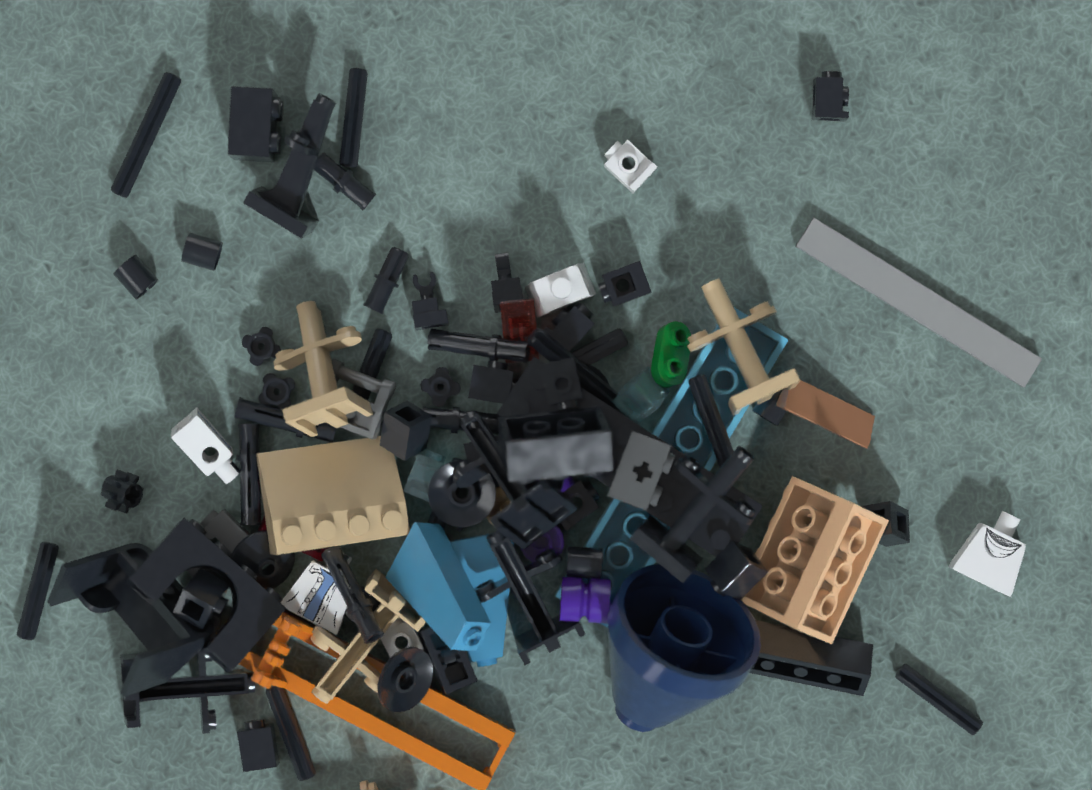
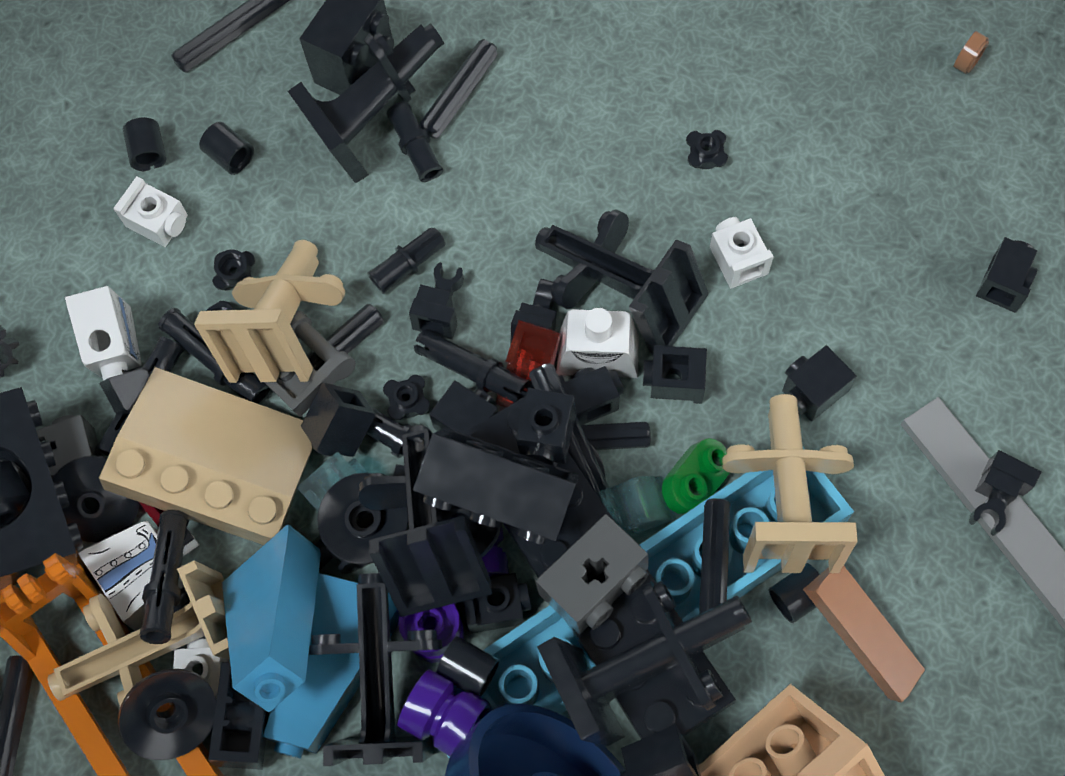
camera: 30 degrees right, 20 degrees down
(163, 325) = (151, 212): none -> white brick
(246, 479) = (124, 390): none -> black slope
(566, 97) = (706, 159): none -> black plate
(593, 234) = (661, 297): none -> black piece
(725, 247) = (818, 382): none -> black brick
(880, 267) = (1002, 482): none -> black piece

